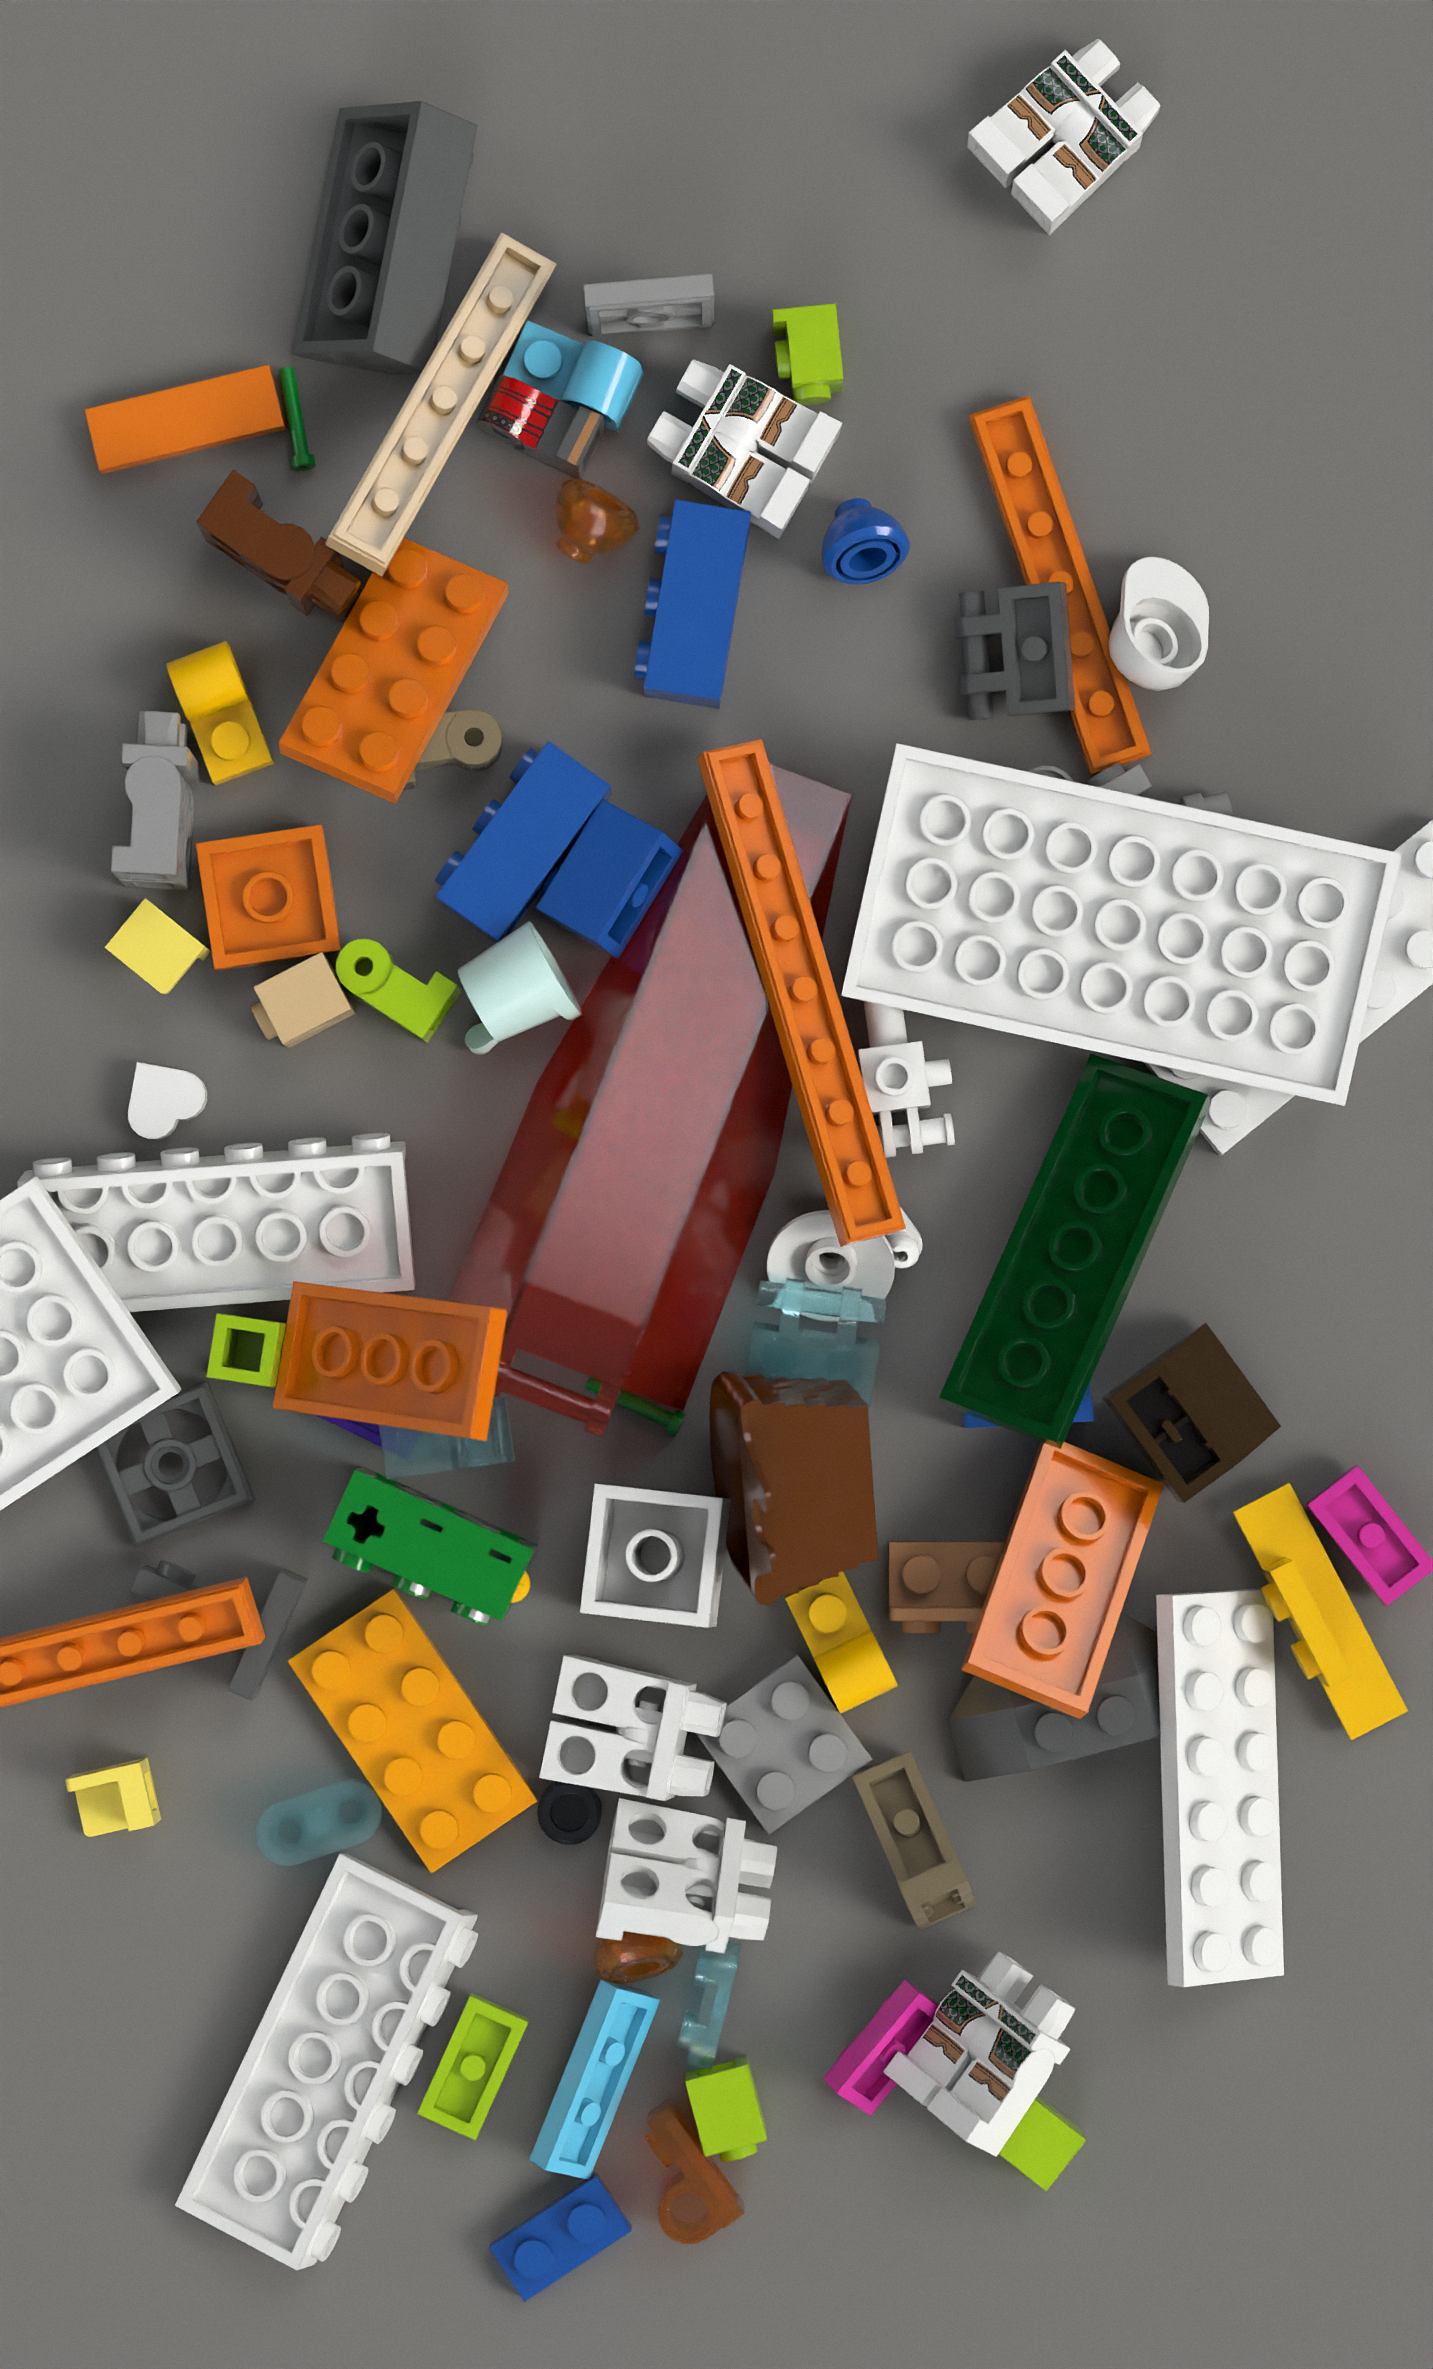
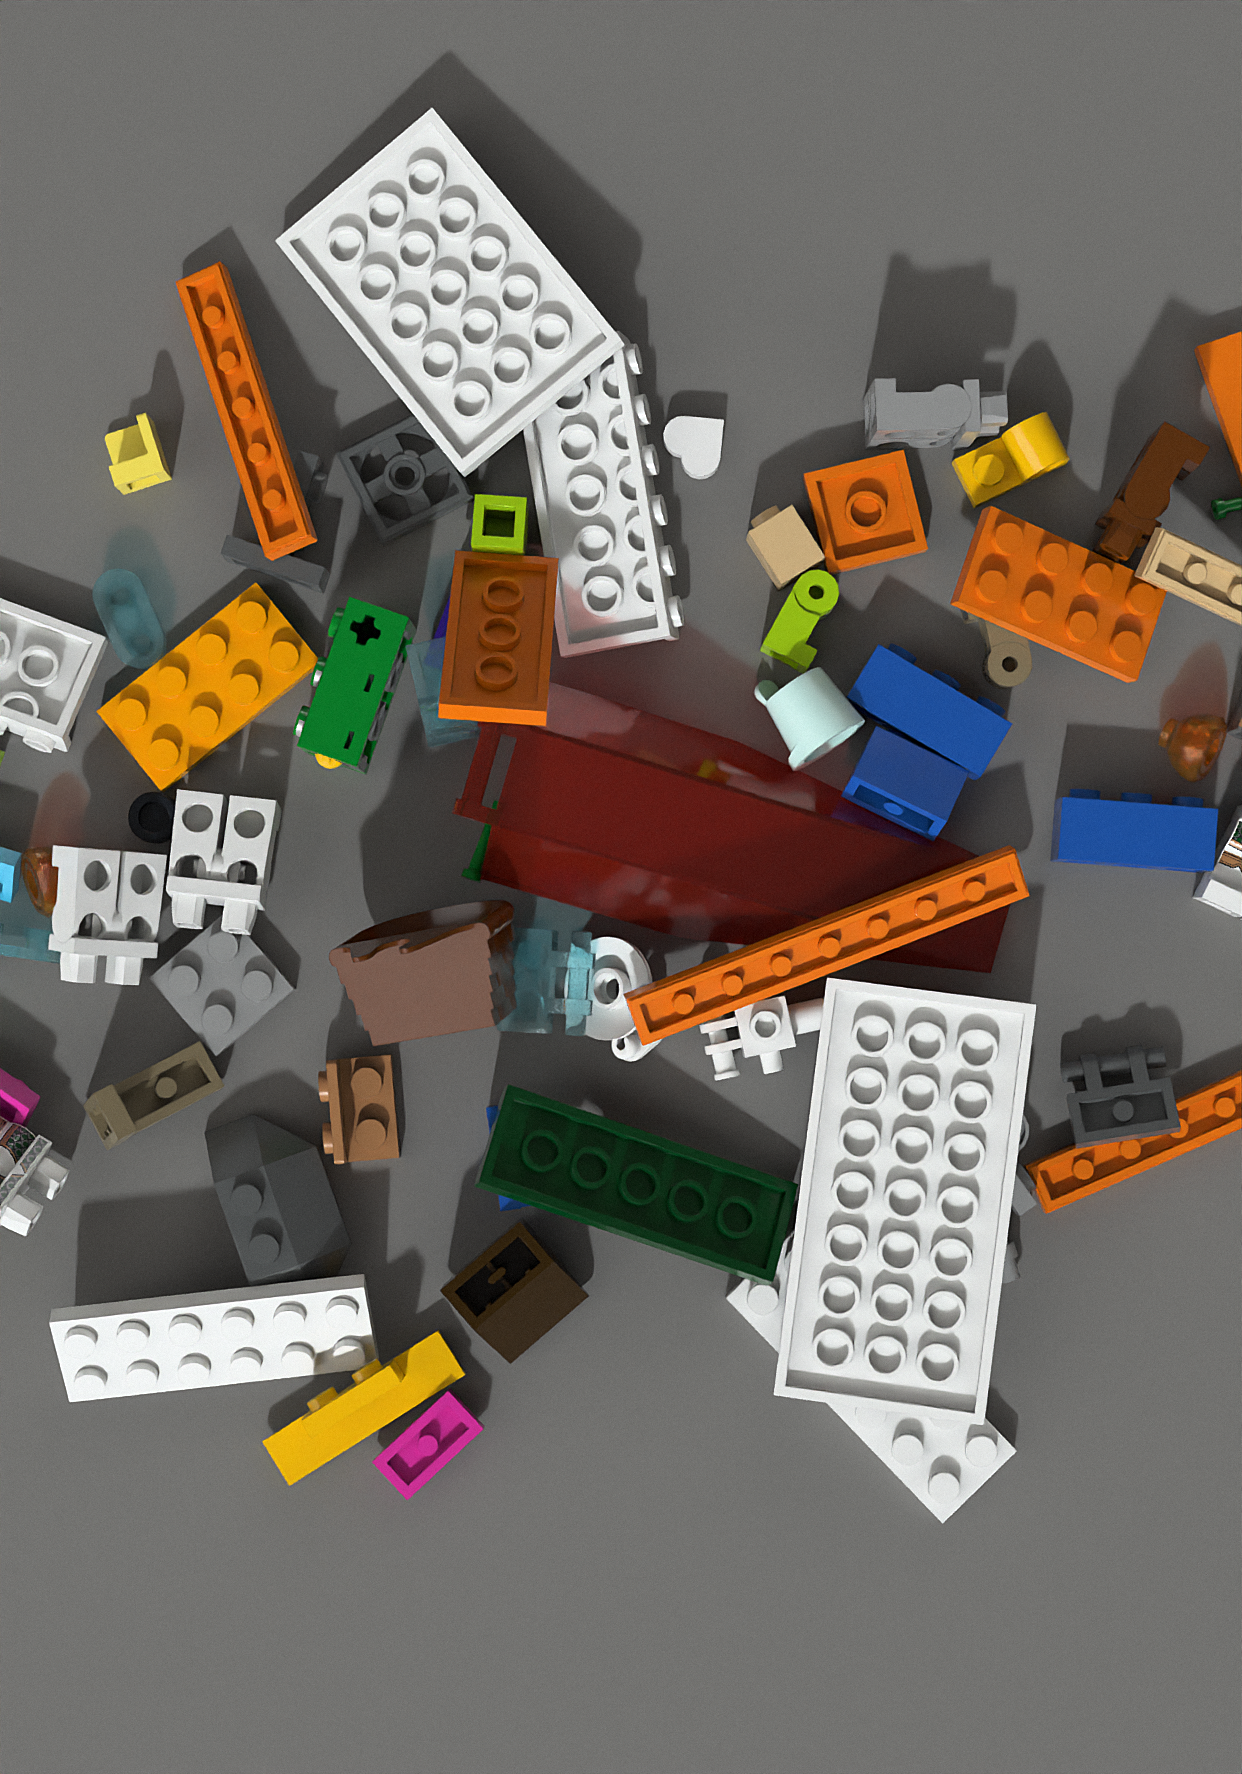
camera: 85 degrees right, 0 degrees up
(156, 947) = (817, 425): light yellow panel -> none
(655, 1555) = (362, 867): white brick -> none
(841, 1642) = (305, 1024): yellow plate -> none
(863, 543) = (1195, 965): blue brick -> none
(1063, 1577) = (371, 1197): orange plate -> none
(1160, 625) = (1151, 1211): white cap -> none

